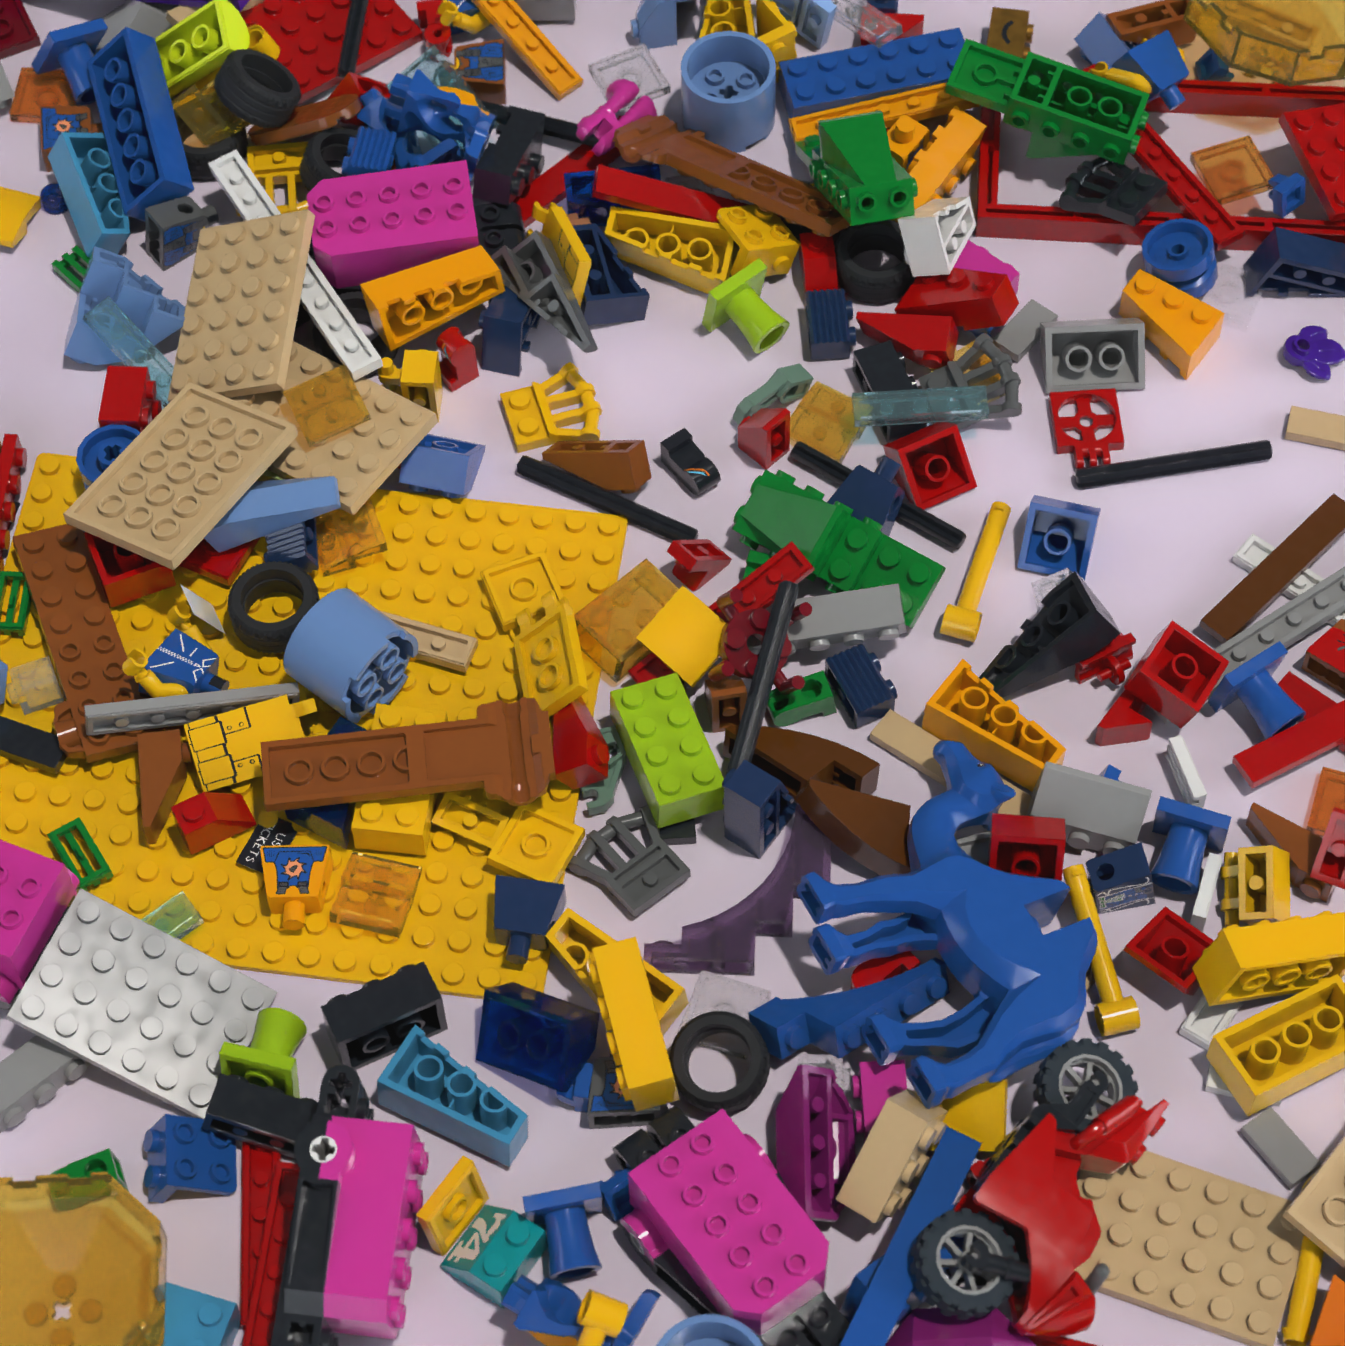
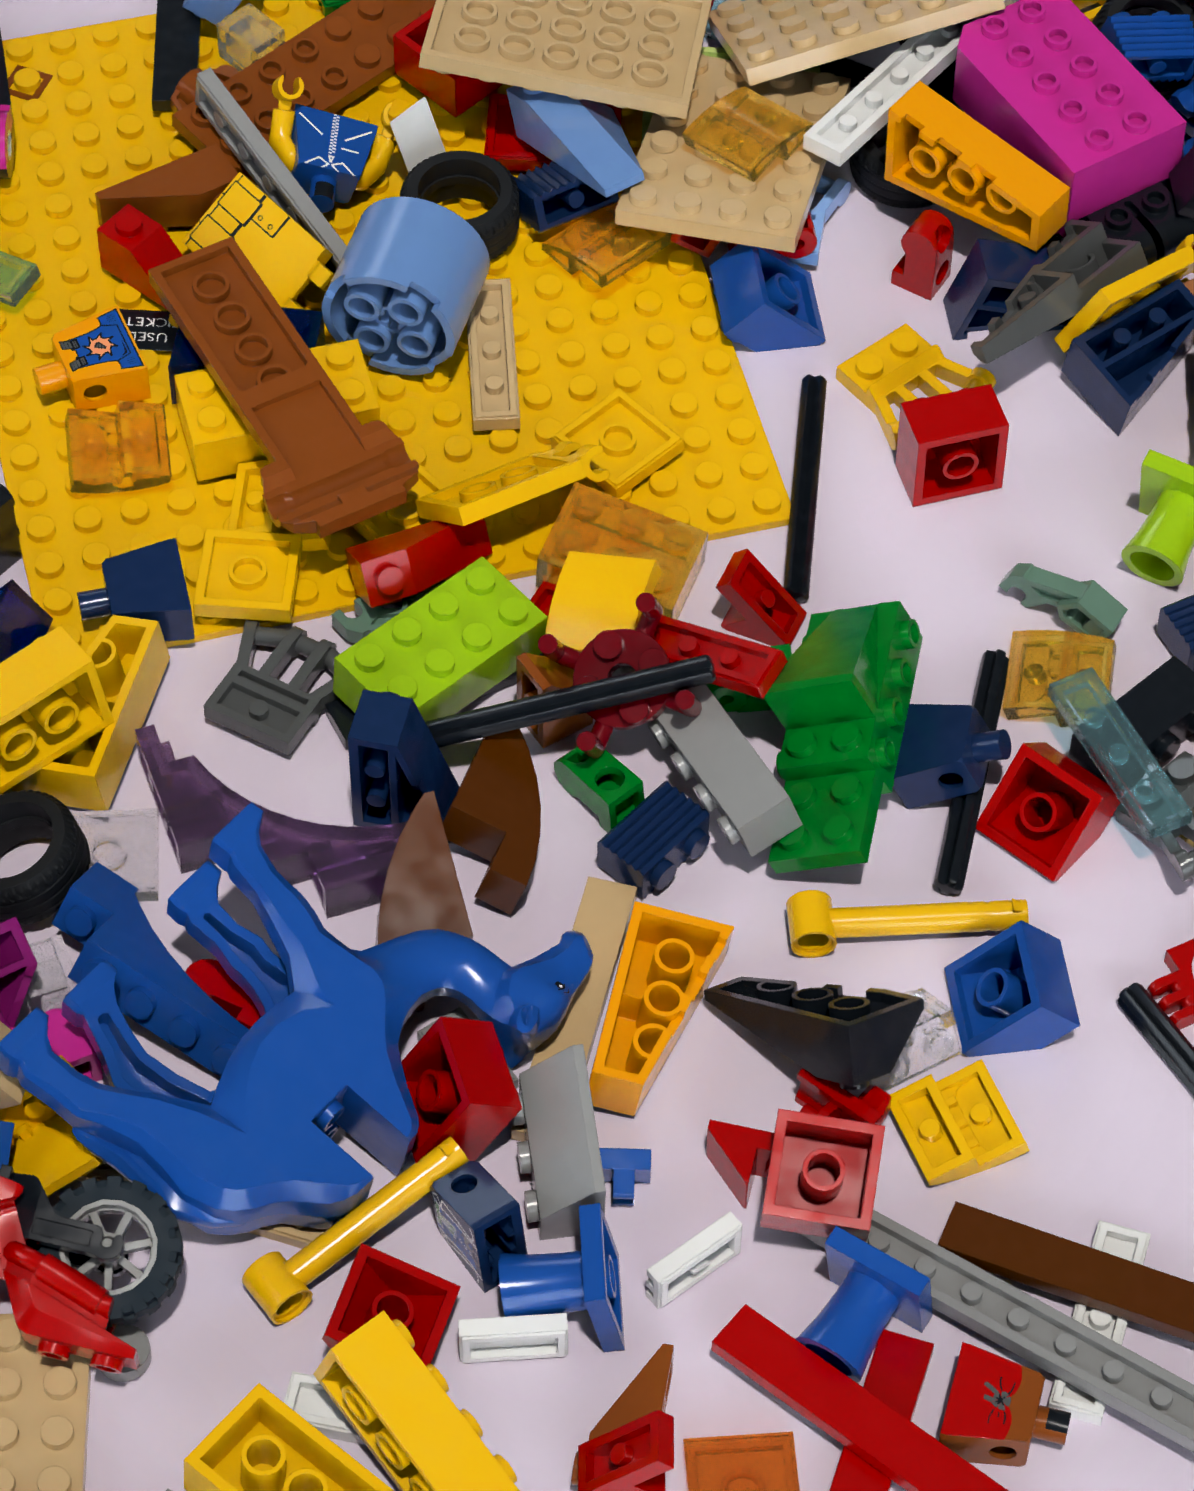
camera: 65 degrees right, 5 degrees down
(92, 877) = (60, 170): green tile -> none
(418, 378) = (858, 228): yellow brick -> none
(605, 463) = (851, 457): dark orange slope -> none
(628, 398) = (951, 445): none -> red brick
(688, 462) = (907, 546): black leg -> none
(765, 435) = (985, 611): red slope -> none
(1137, 599) = (957, 1124): none -> yellow slope
(1256, 885) = (541, 1395): yellow brick -> none

